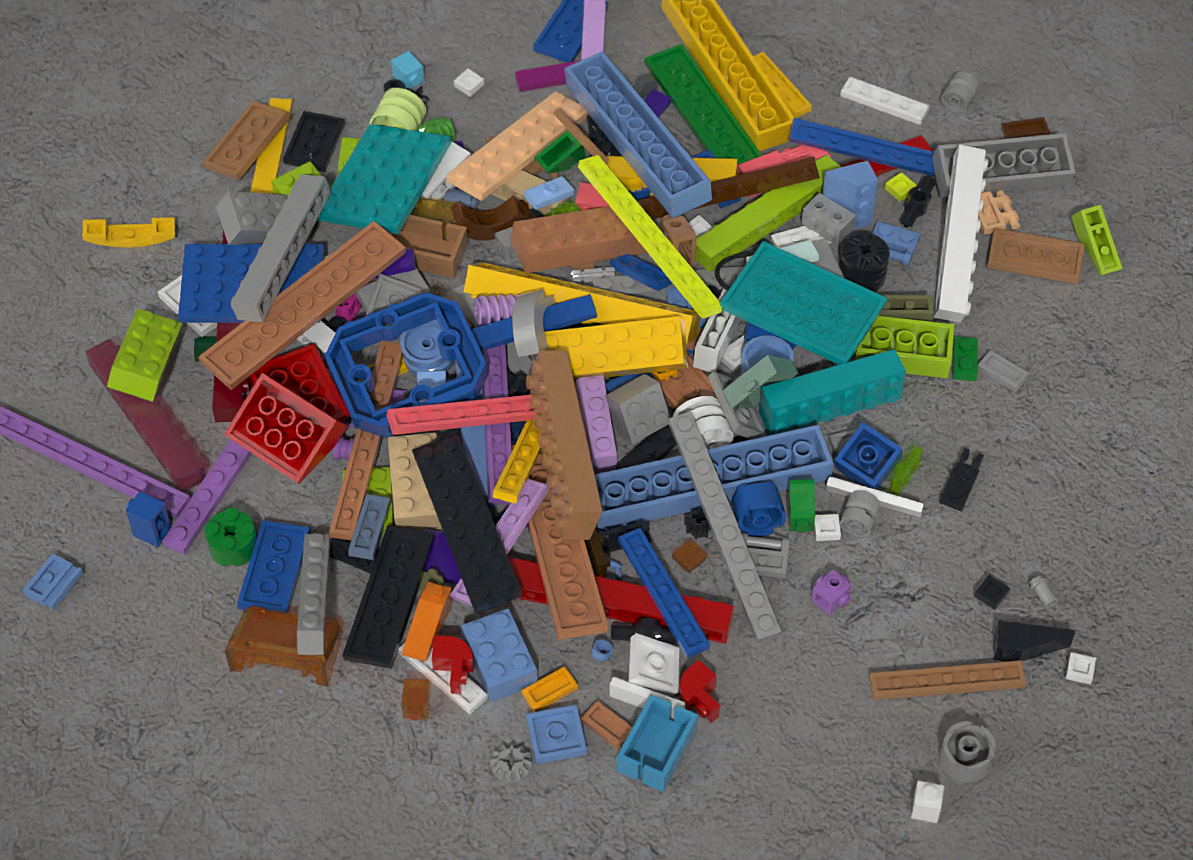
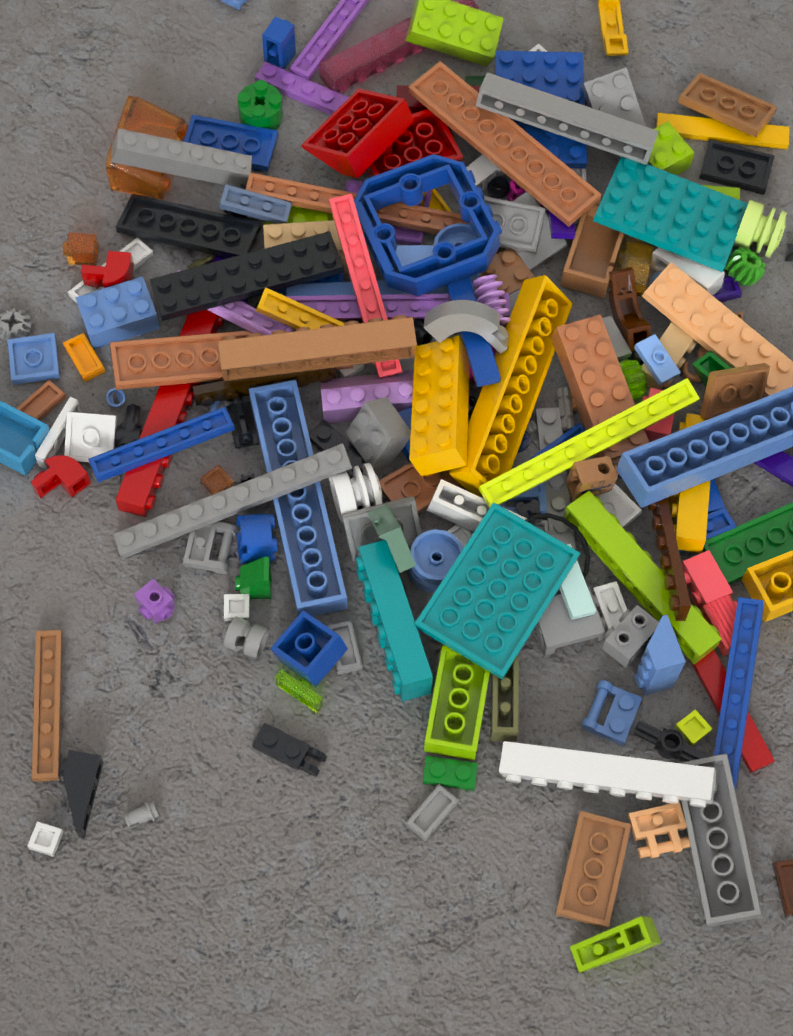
camera: 90 degrees right, 10 degrees up
(427, 621) = (157, 255): orange slope -> none
(865, 260) = (577, 683): black wheel -> none
(886, 500) = (265, 659): white tile -> none
(992, 592) = (145, 761): black plate -> none

